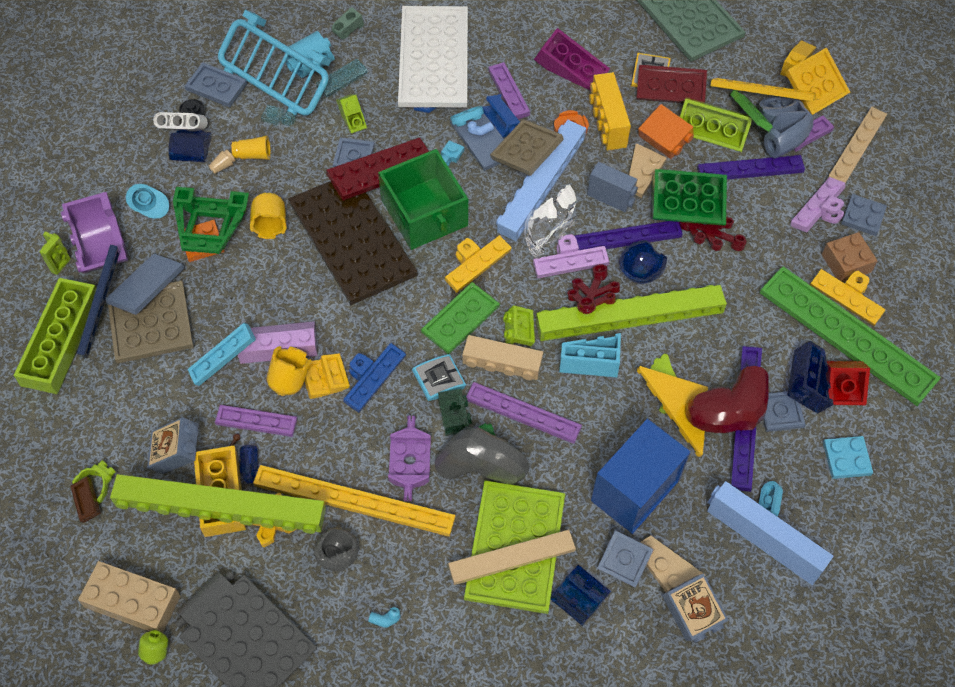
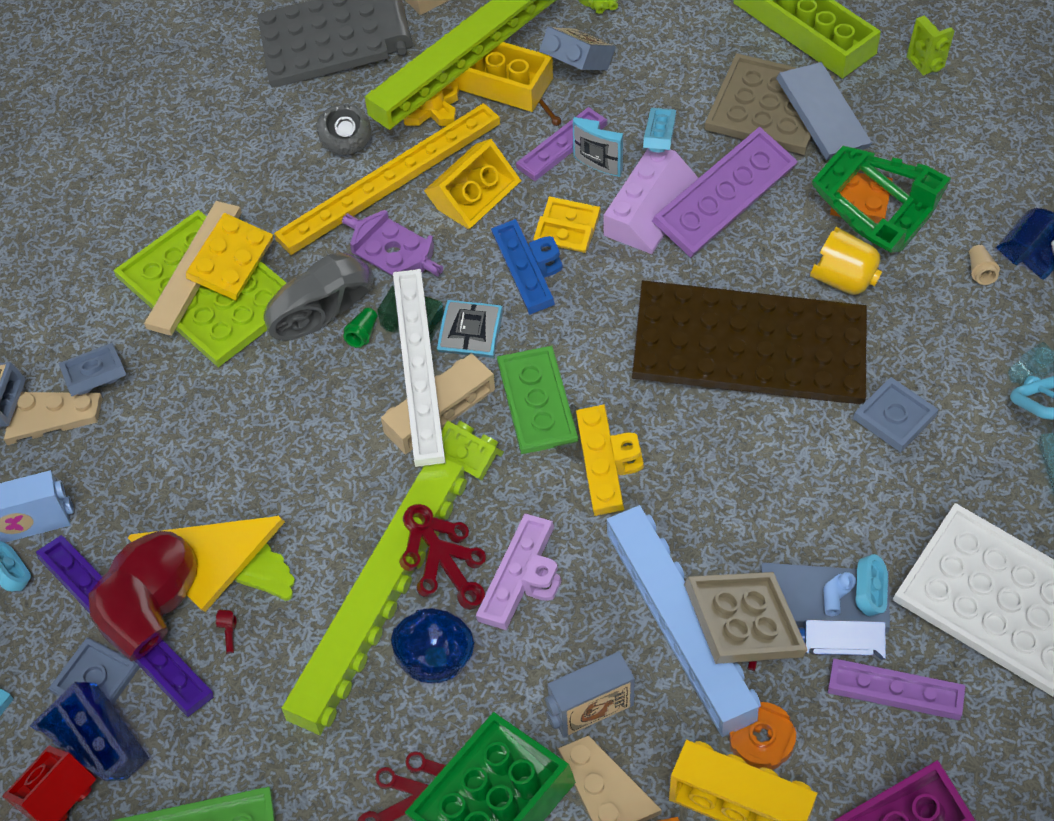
camera: 130 degrees right, 5 degrees down
(93, 231) = (921, 95): medium lavender cylinder -> none
(98, 301) = (820, 51): dark blue tile -> none
(147, 201) = (965, 160): medium azure piece -> none
(245, 303) = (724, 192): none -> medium lavender plate
(248, 462) = (512, 112): clear blue hinge -> none
(252, 148) = (981, 304): yellow plant -> none
(257, 384) = (597, 147): none -> slope
(287, 370) = (590, 174): yellow cylinder -> none
(328, 446) = (473, 184): none -> yellow slope
(351, 112) = (982, 447): lime slope -> none
(362, 174) = (843, 429): dark red plate -> none
(385, 620) = (243, 145): medium azure arm -> none
(423, 199) = (740, 432): green piece -> none
(452, 152) = (820, 540): medium azure plate -> none
(491, 537) = (229, 256): none -> yellow plate
(492, 370) = (418, 369): none -> white plate
(524, 412) = (339, 395): medium lavender tile -> none
(556, 208) = (591, 550): clear animal -> none
(580, 595) = (104, 314): clear blue slope -> none
(592, 357) = (350, 494): medium azure wedge -> none
(627, 236) = (508, 667): dark purple tile -> none
(639, 475) = (146, 415): blue piece -> none
(702, 372) = (227, 620): none -> dark red hand

